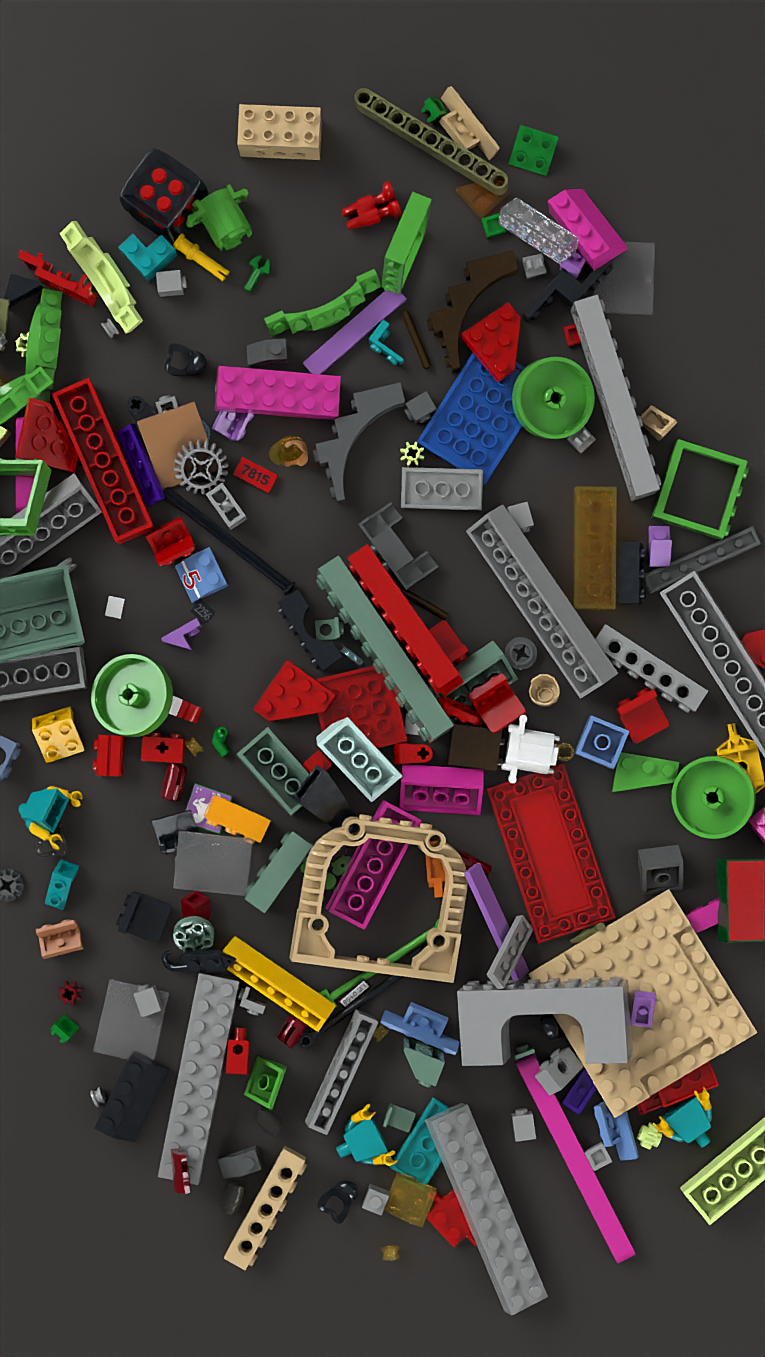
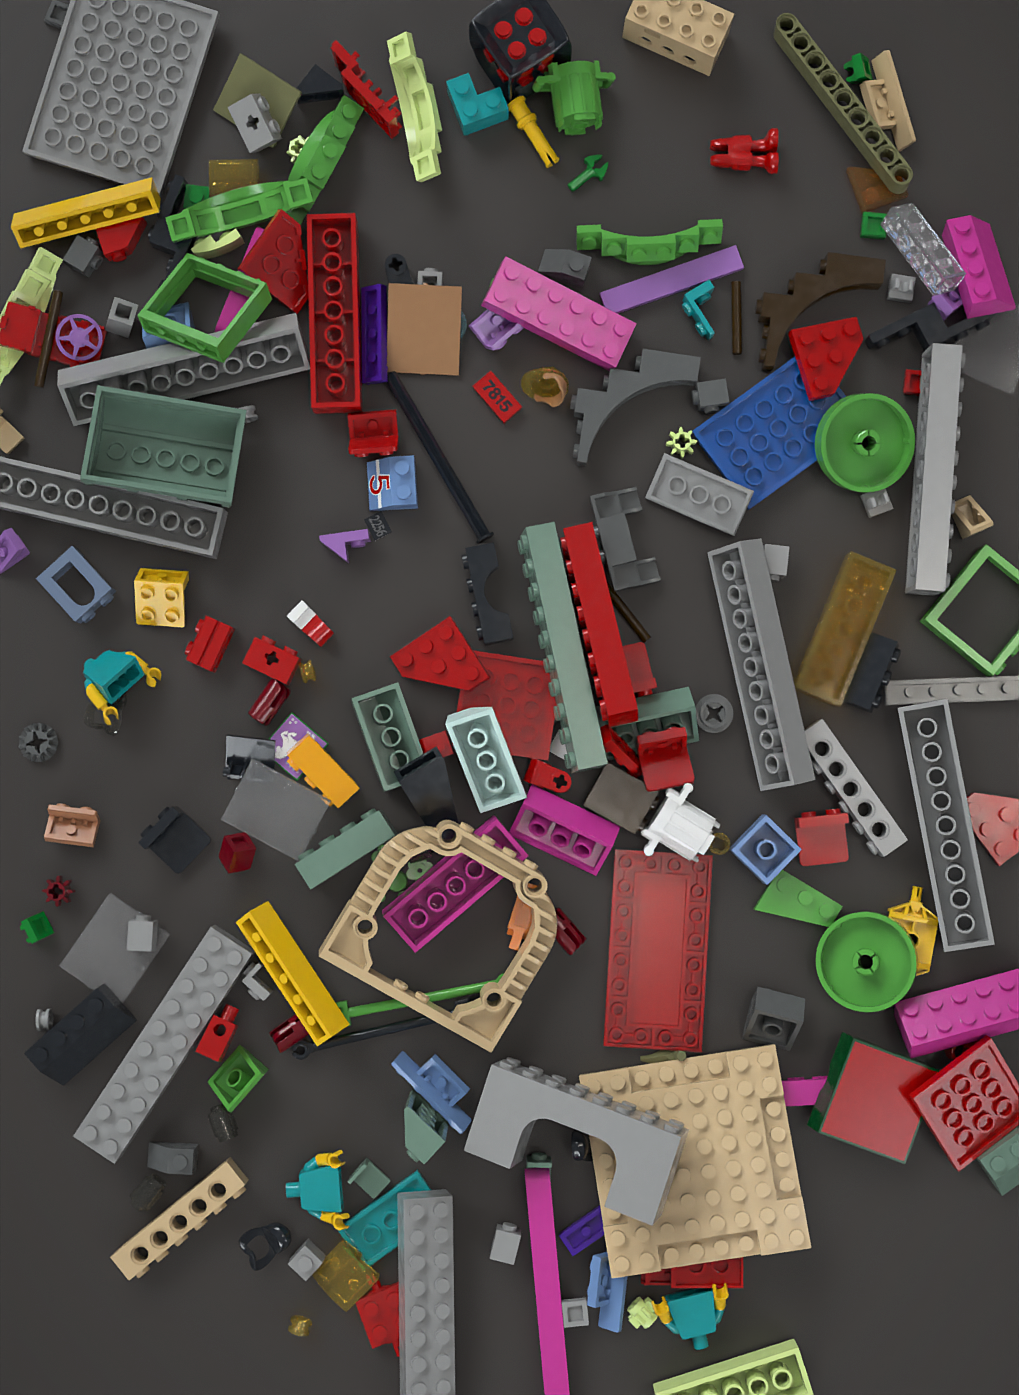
camera: 15 degrees right, 0 degrees up
(60, 884) = (97, 765): teal bracket -> none
(110, 328) = (401, 169): light grey bush -> none
(114, 607) = (281, 481): white sticker -> none
(145, 709) = (270, 607): piece -> none
(171, 283) = (488, 146): light grey brick -> none
(180, 1171) = (100, 1142): dark red slope -> none
(193, 934) = (222, 881): sand green tile -> none
(196, 362) = (481, 246): black piece -> none
(200, 961) = (217, 914): black plate -> none
(212, 480) = (420, 369): light grey gear -> none
(218, 741) = (337, 676): green arm -> none
(226, 506) = (451, 418): light grey brick -> none
(337, 629) = (519, 605): sand green bracket -> none
(341, 1071) = (325, 1101): light grey brick -> none
(352, 656) = (523, 640): clear light blue piece -> none
(354, 993) = (375, 1019): sticker -> none
(380, 1032) = (386, 1074): clear yellow bush -> none
(405, 243) = (770, 202): bright green window -> none
(492, 913) = (566, 1003): medium lavender tile -> none
(509, 952) = (568, 1044): light grey plate -> none
(533, 150) = (952, 158): green hinge -> none
(544, 690) = (723, 765): tan hair -> none
(559, 1070) = (569, 1198): light grey brick -> none
(643, 1008) = (693, 1168): medium lavender slope -> none
(659, 546) = (917, 656): medium lavender slope -> none

